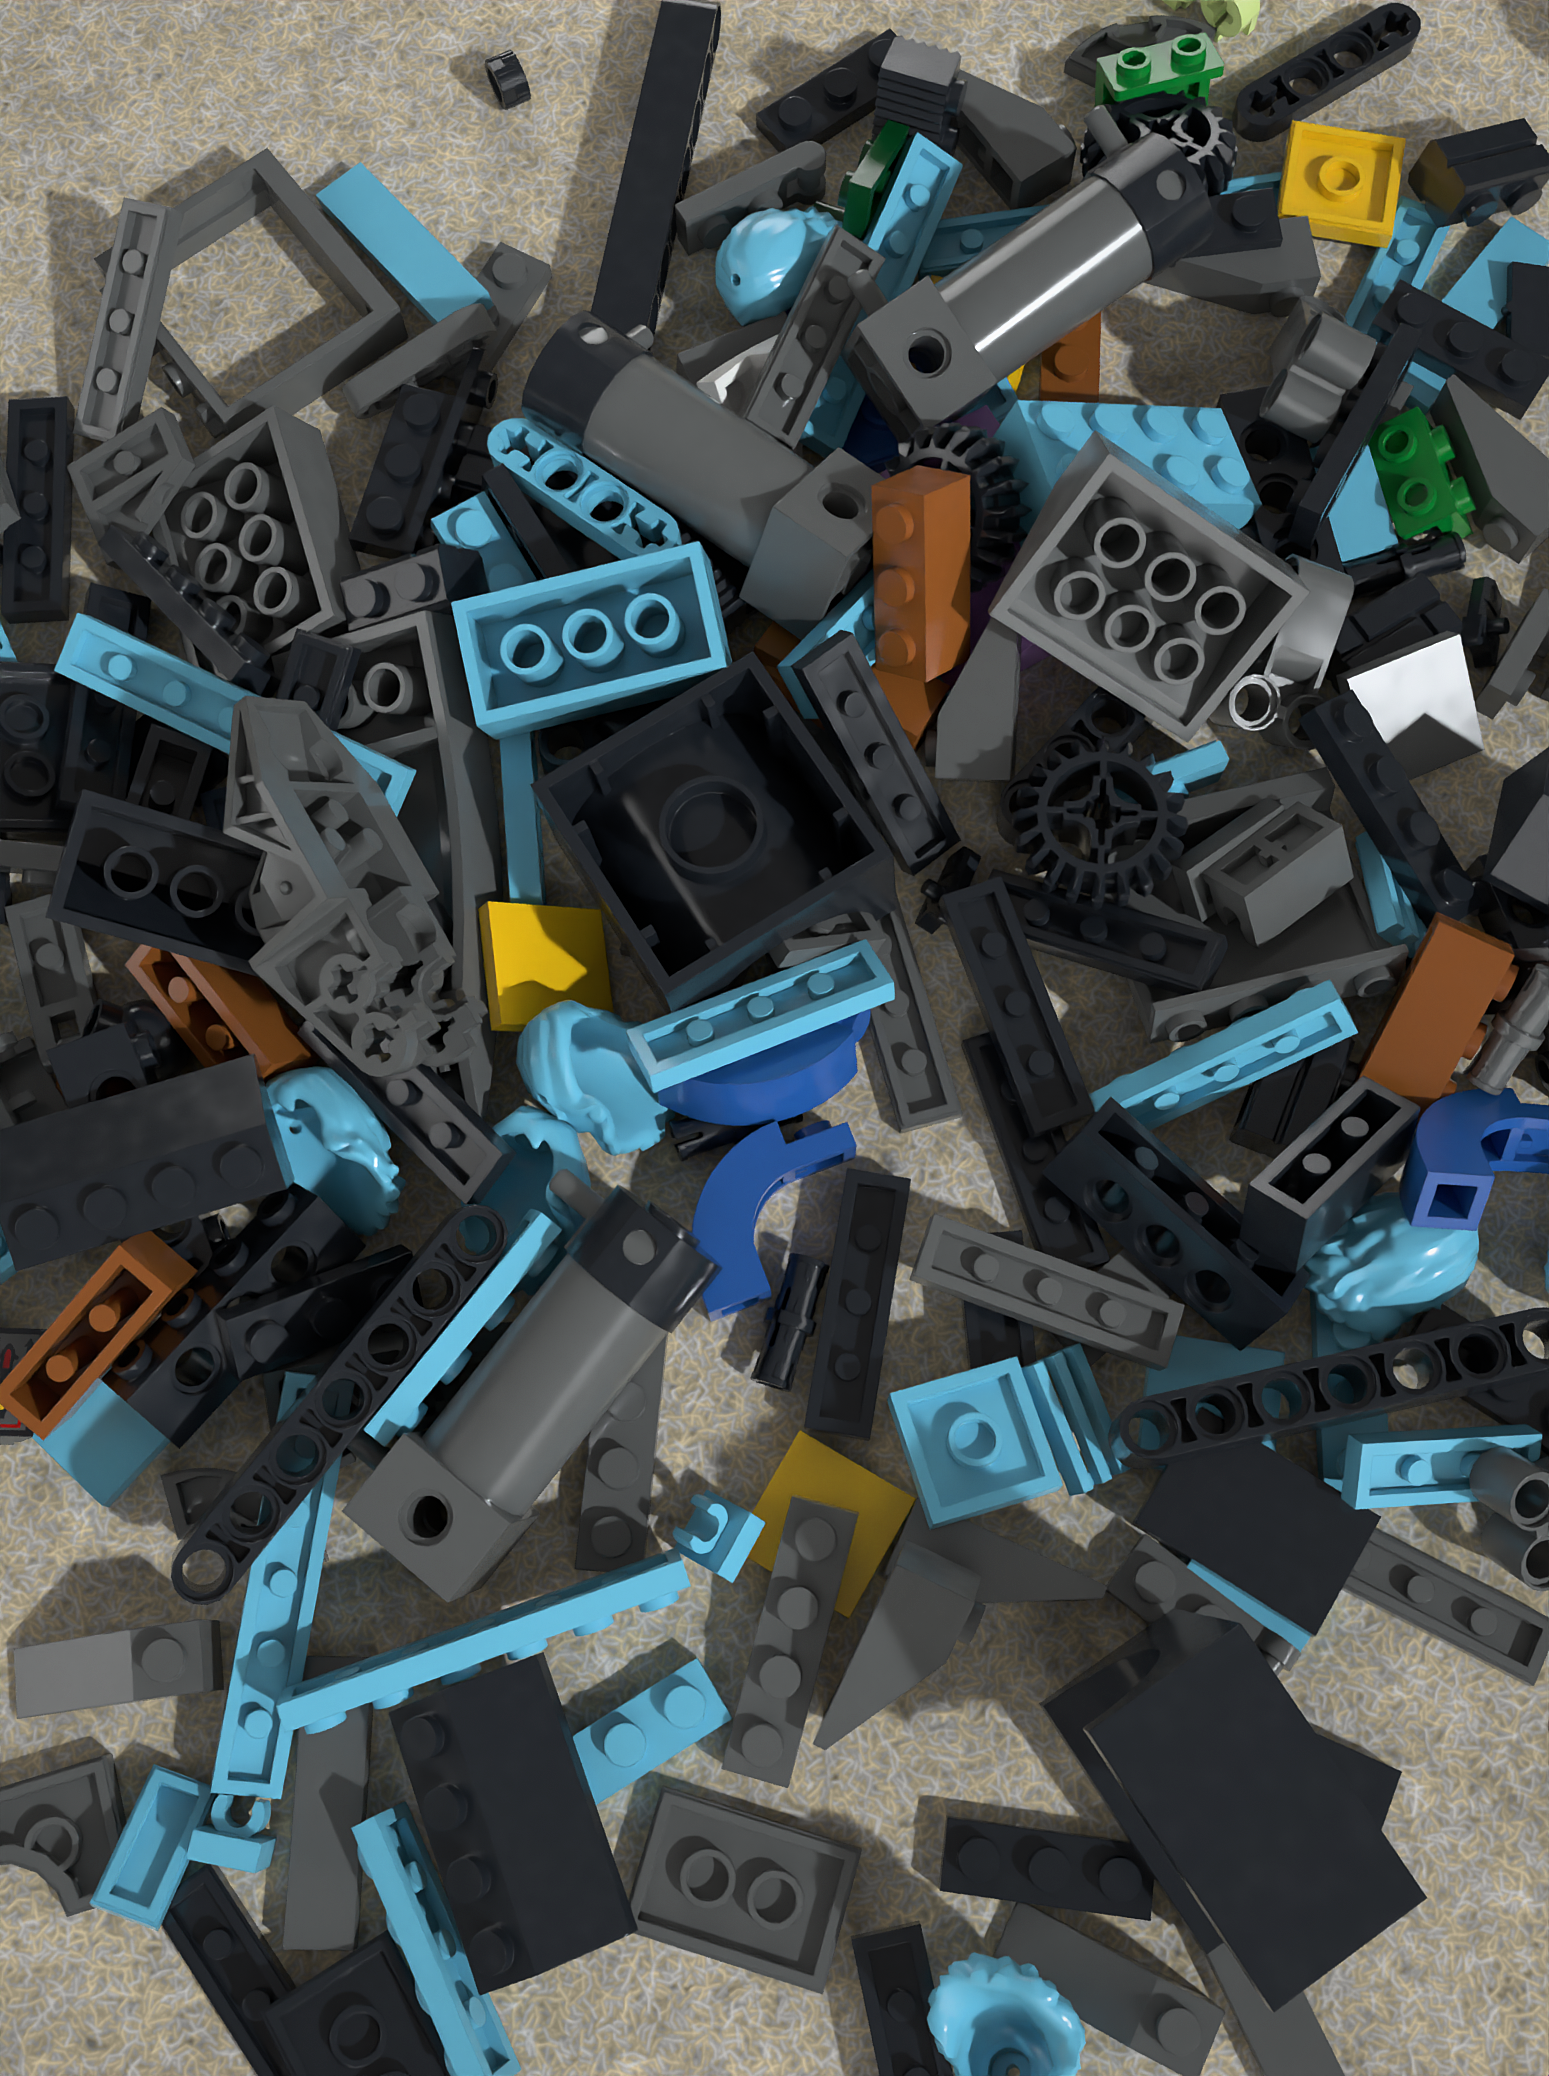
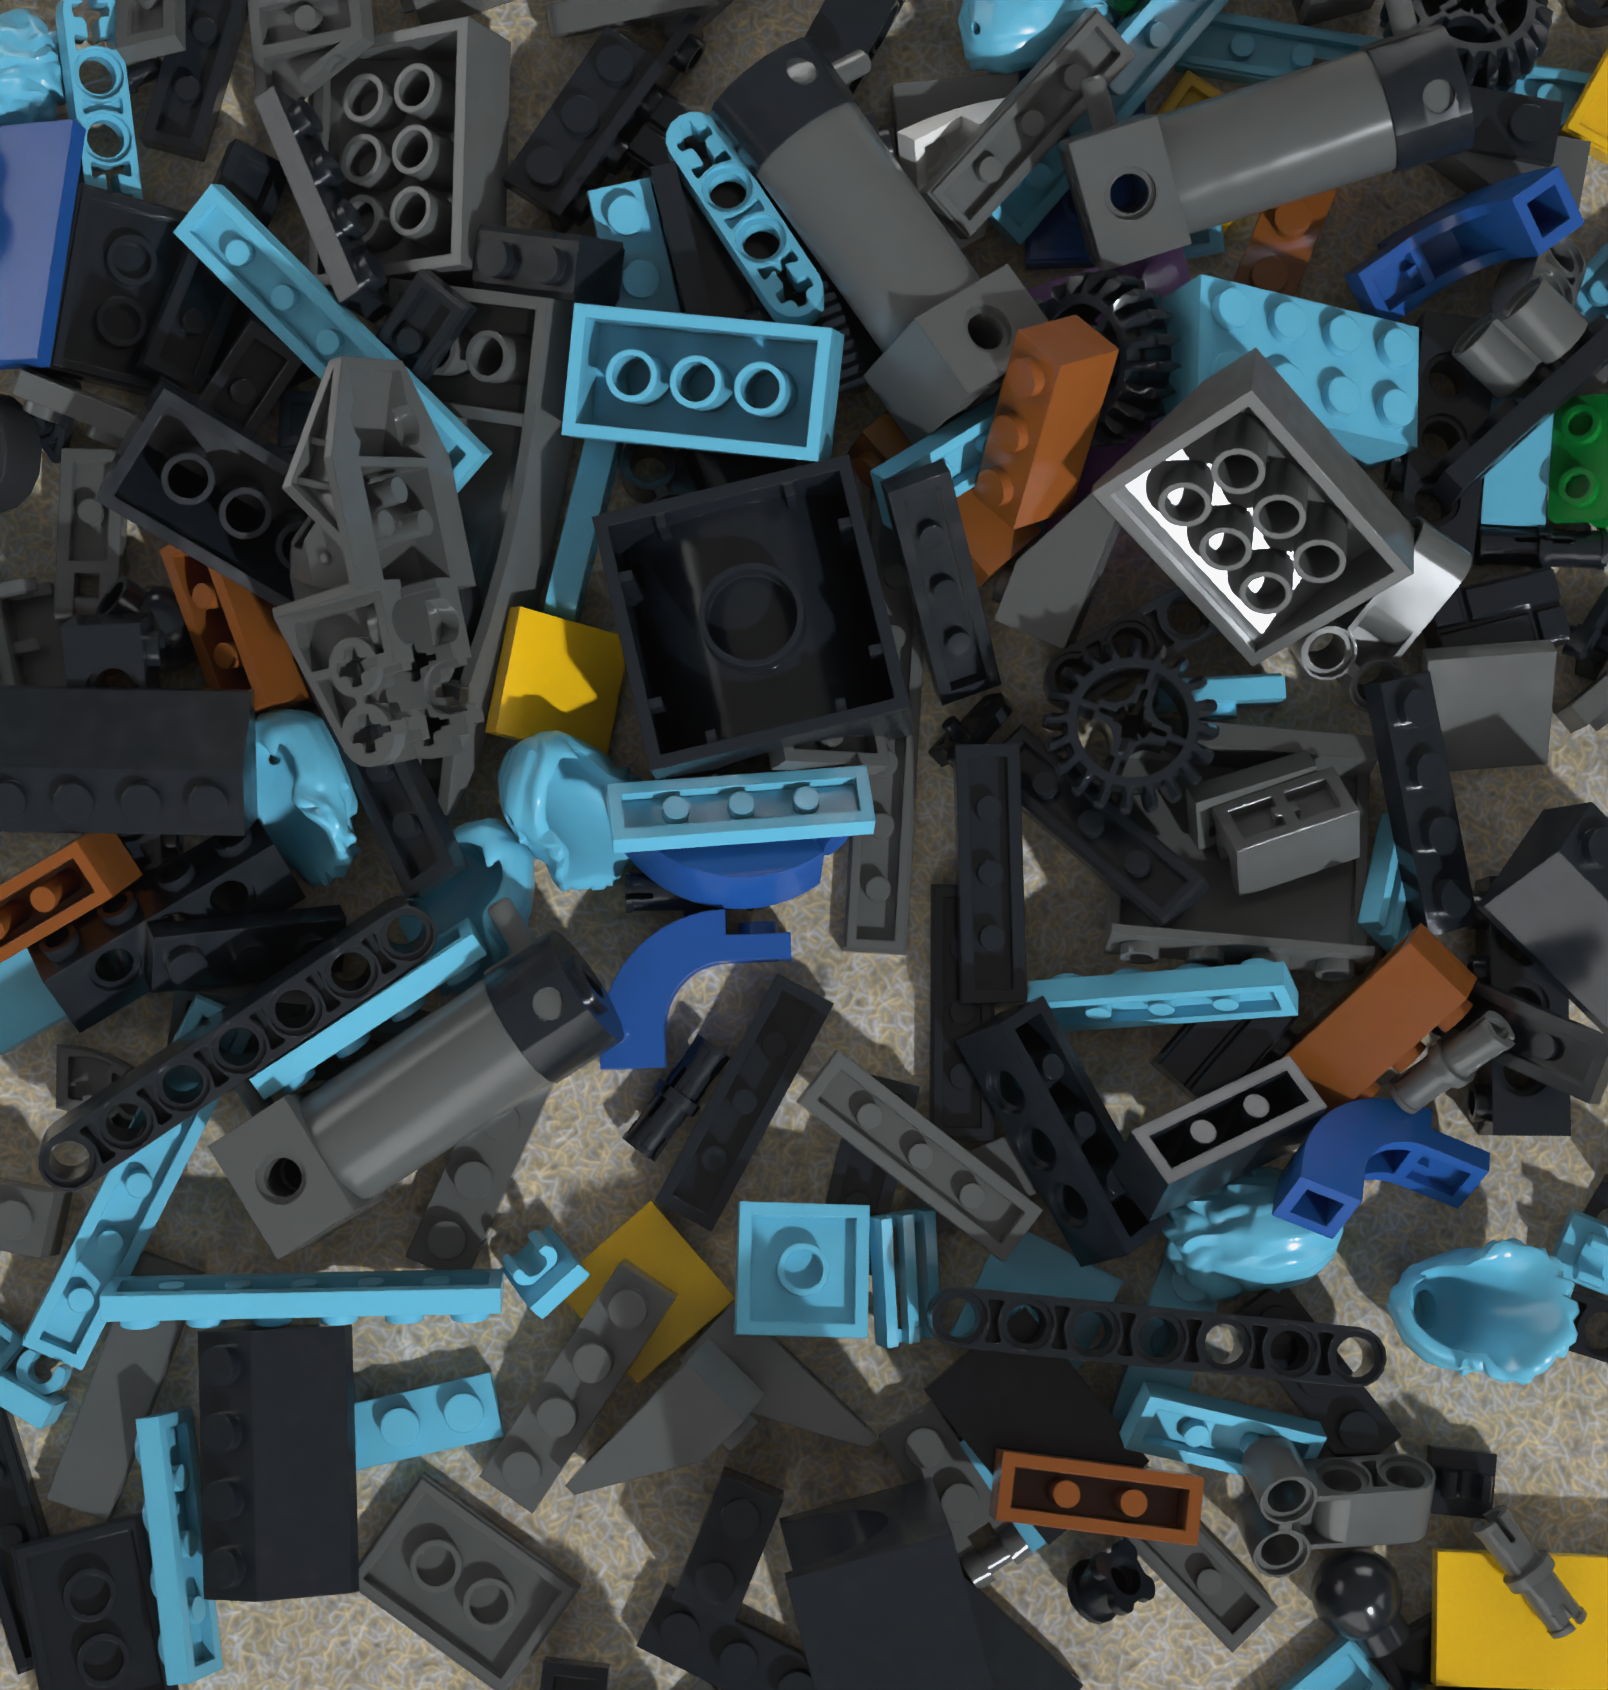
camera: 15 degrees right, 10 degrees up
(997, 1751) = (728, 1545): none -> black brick
(1236, 320) = (1477, 230): none -> blue arch
(1349, 1563) = (1096, 1497): none -> dark orange brick
(1388, 1656) = (1109, 1584): none -> black brick

